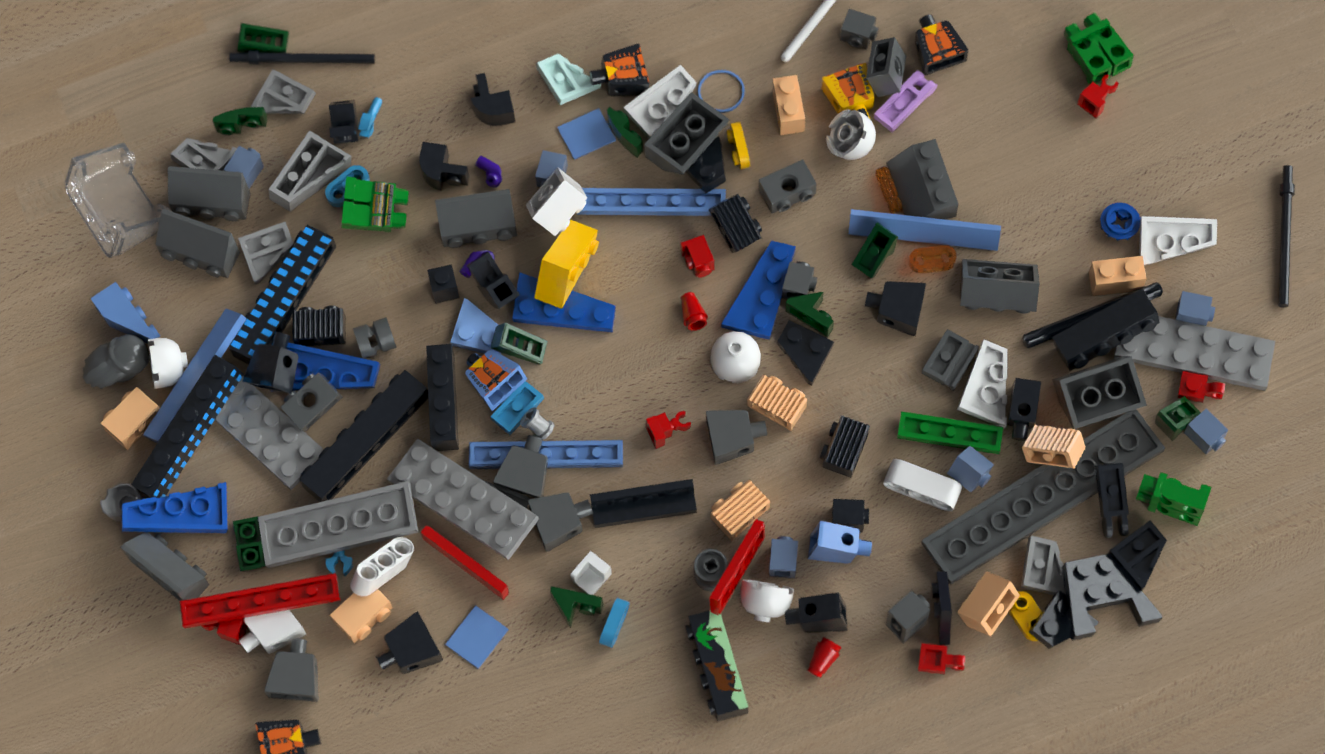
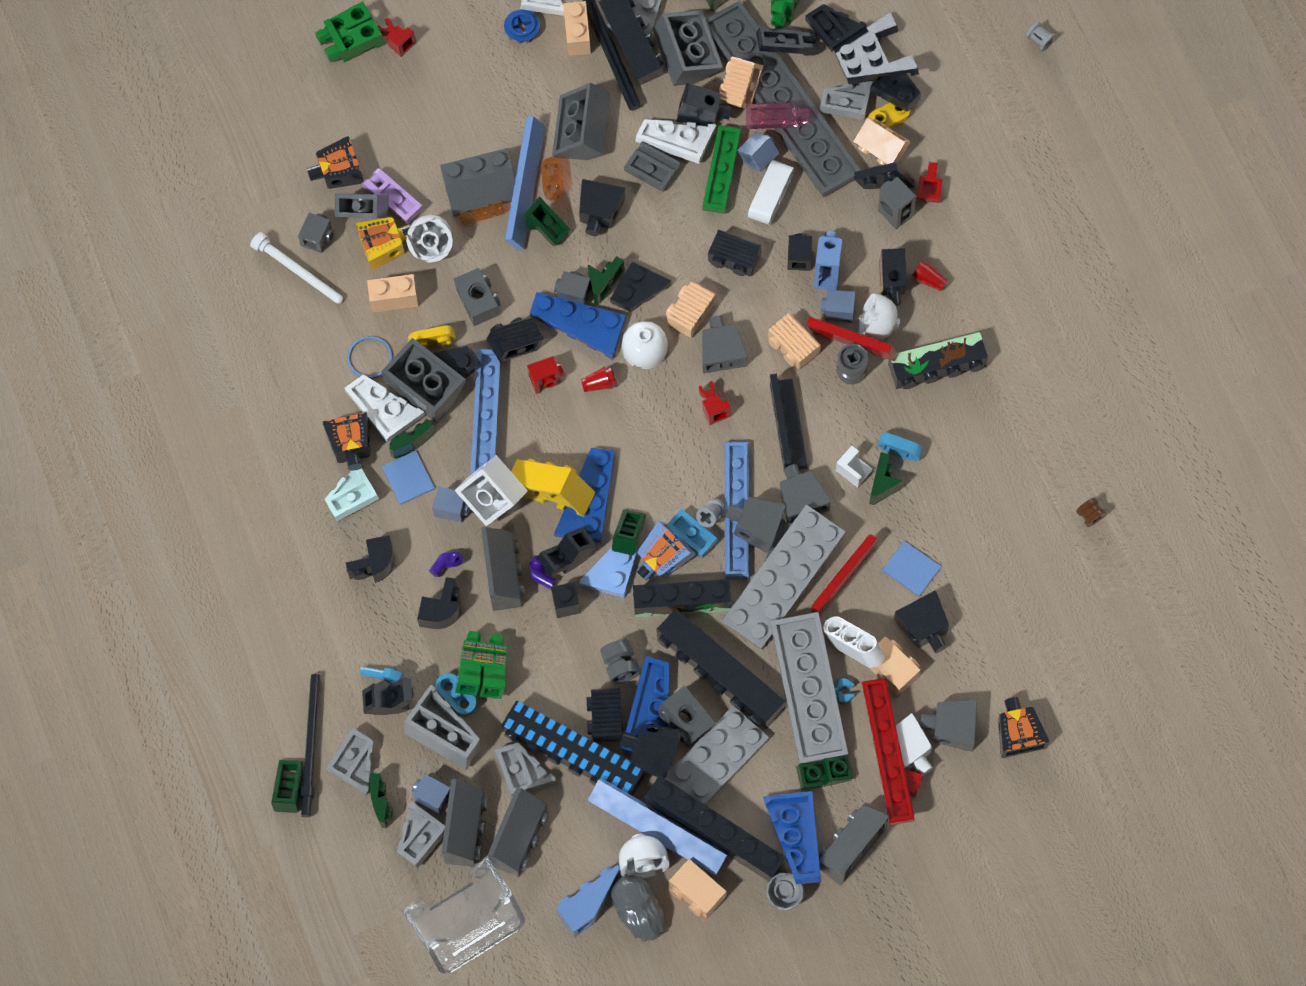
camera: 90 degrees left, 0 degrees up
(1013, 484) = (775, 116): none -> clear pink hinge

